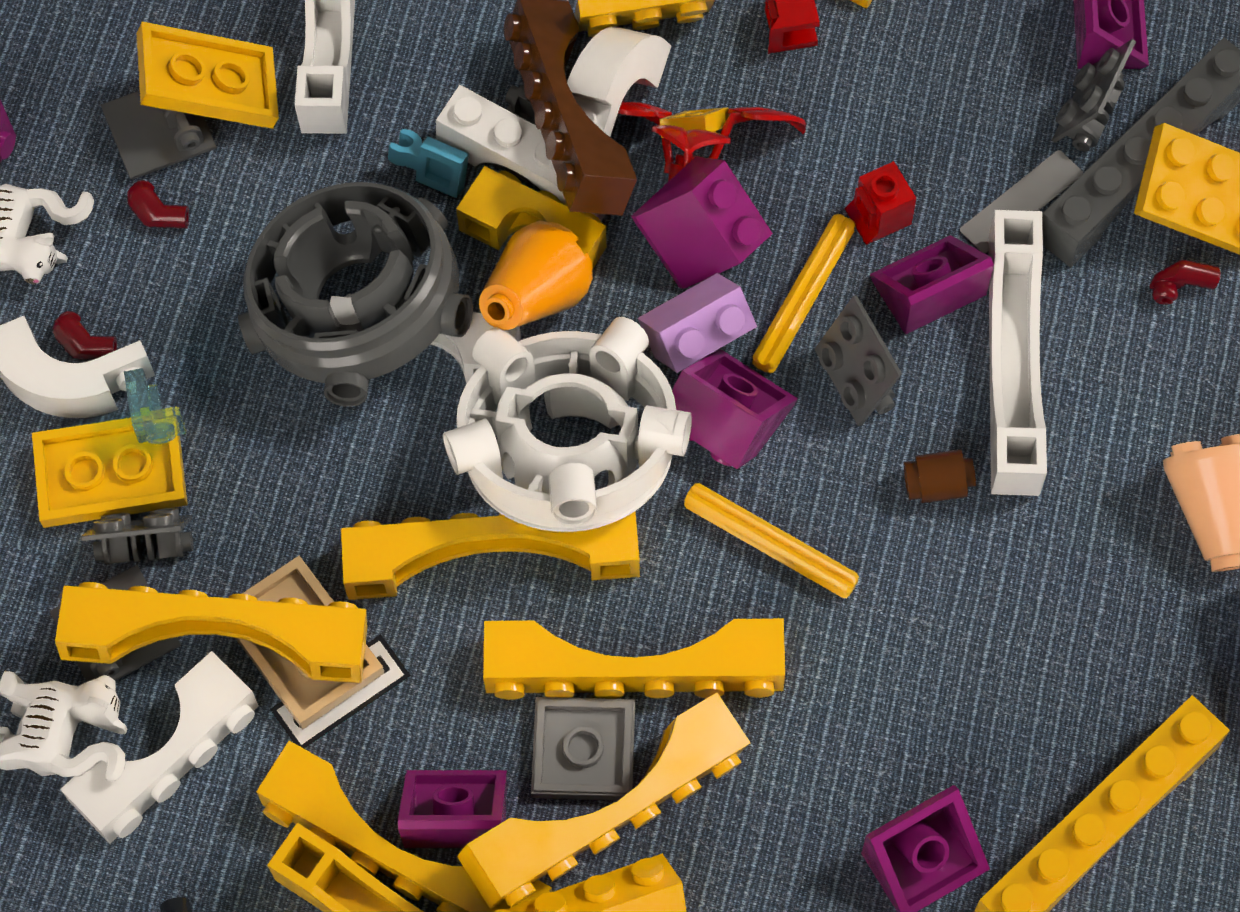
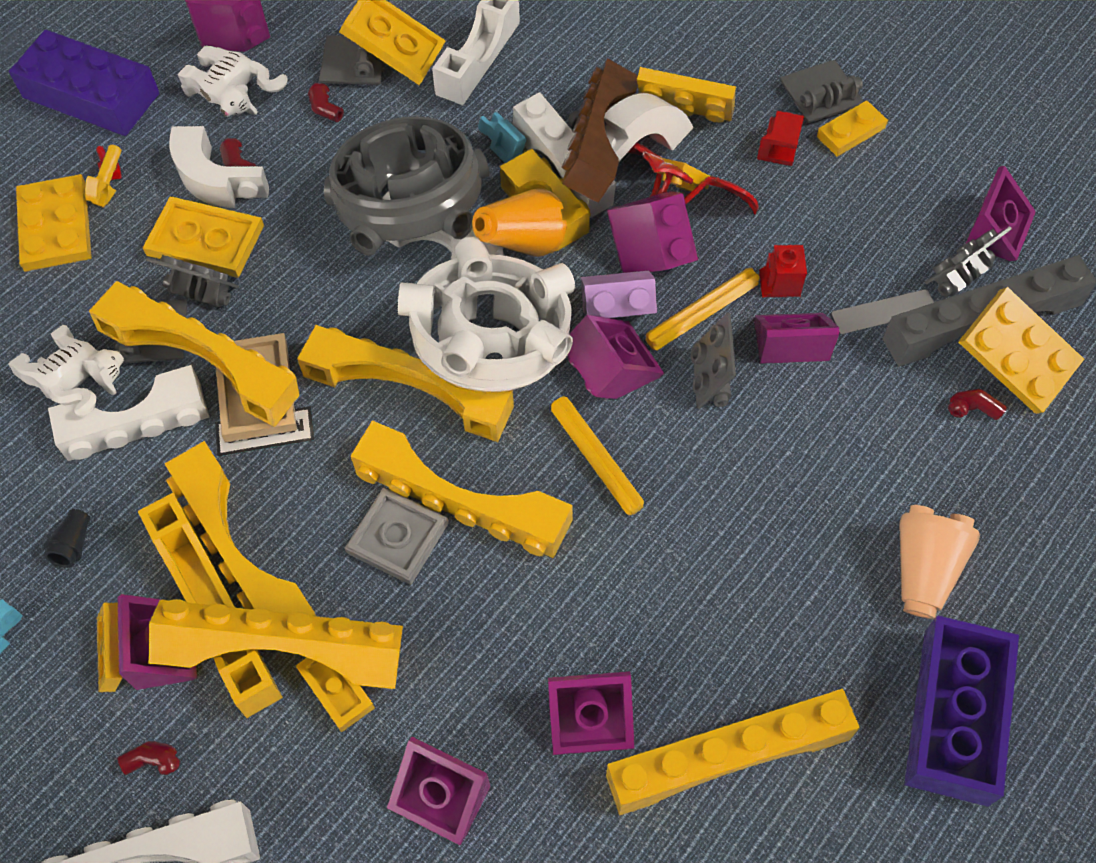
camera: 25 degrees right, 5 degrees down
(147, 417) = (240, 207): clear light blue bracket -> none
(450, 806) = (286, 535): magenta slope -> none
(523, 851) = (300, 578): yellow arch -> none
(939, 476) = (734, 461): reddish brown brick -> none
(1014, 345) = (828, 403): white arch -> none

